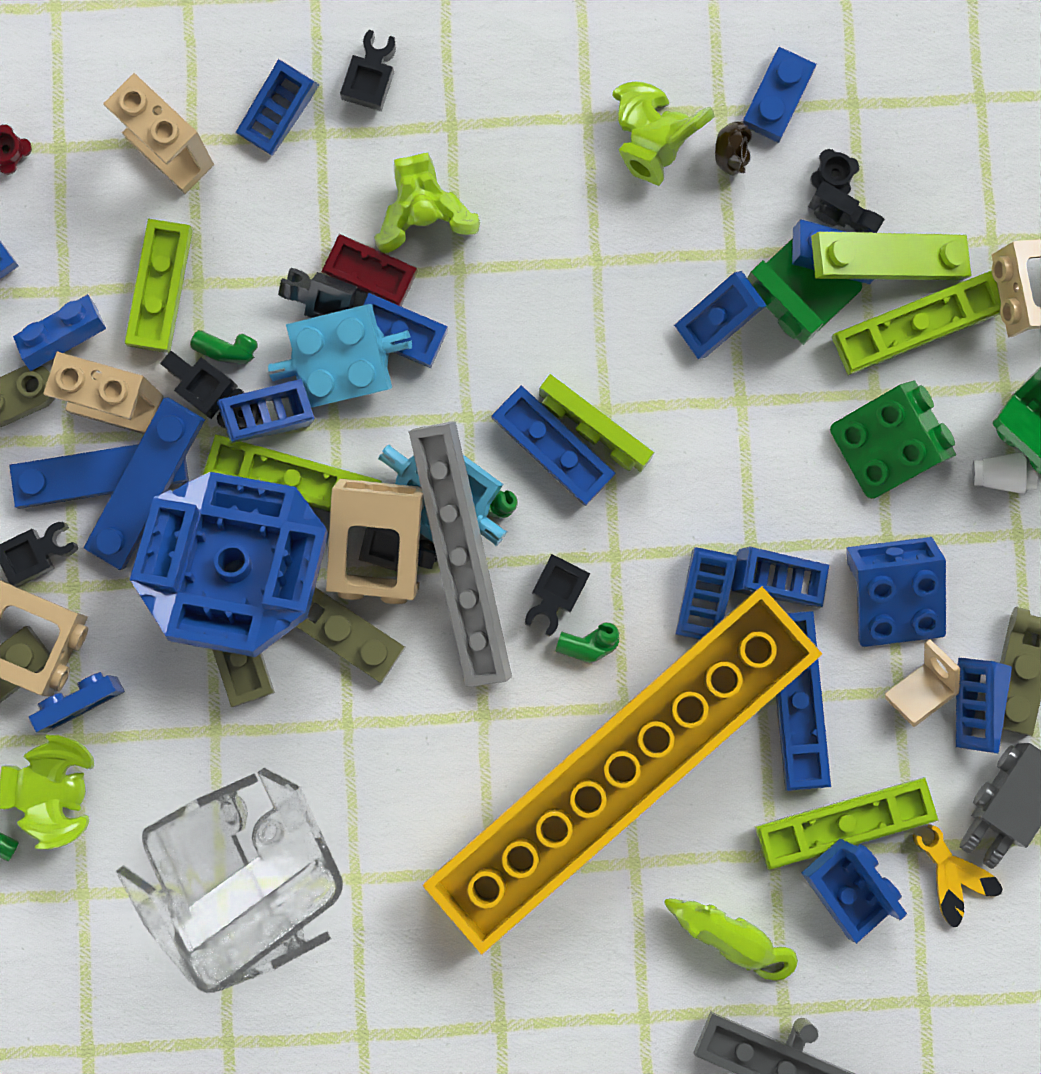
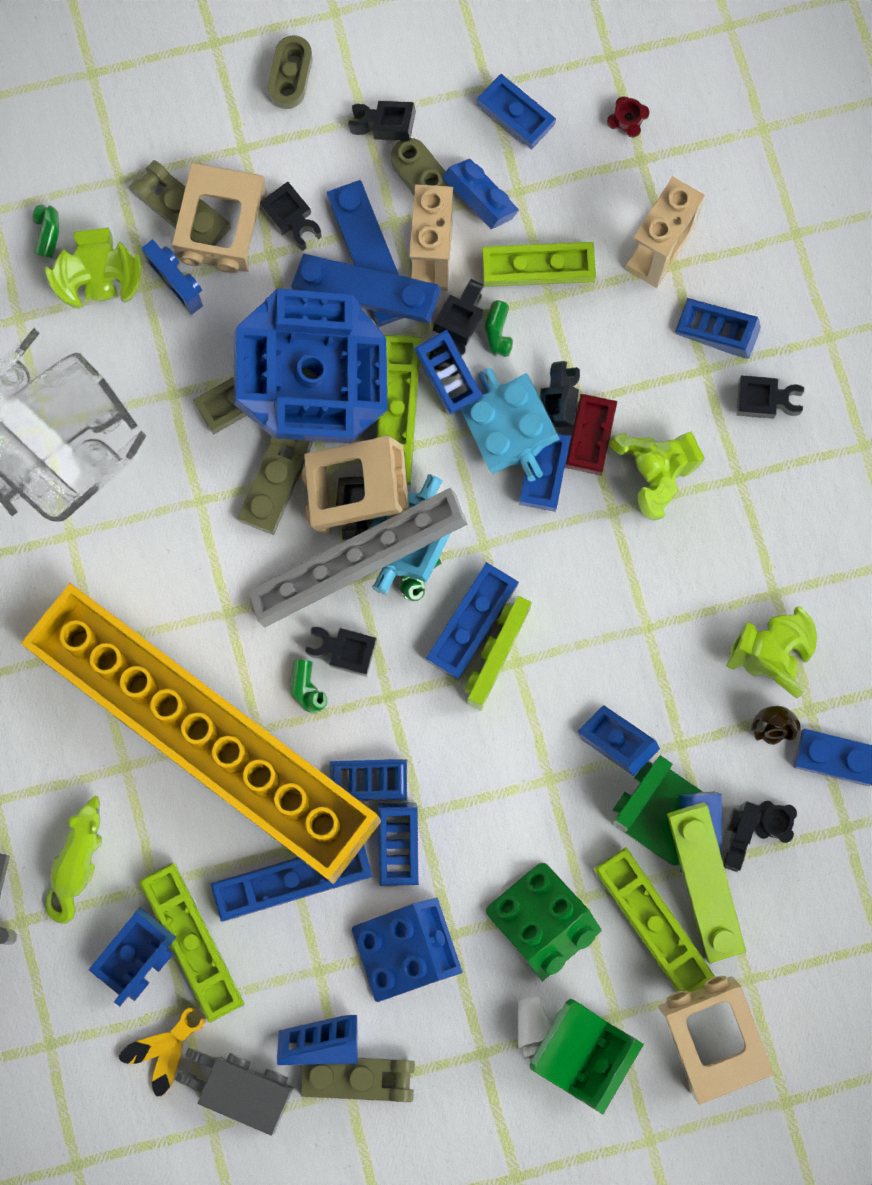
camera: 80 degrees right, 5 degrees down
(926, 687) = (322, 988): tan bracket -> none

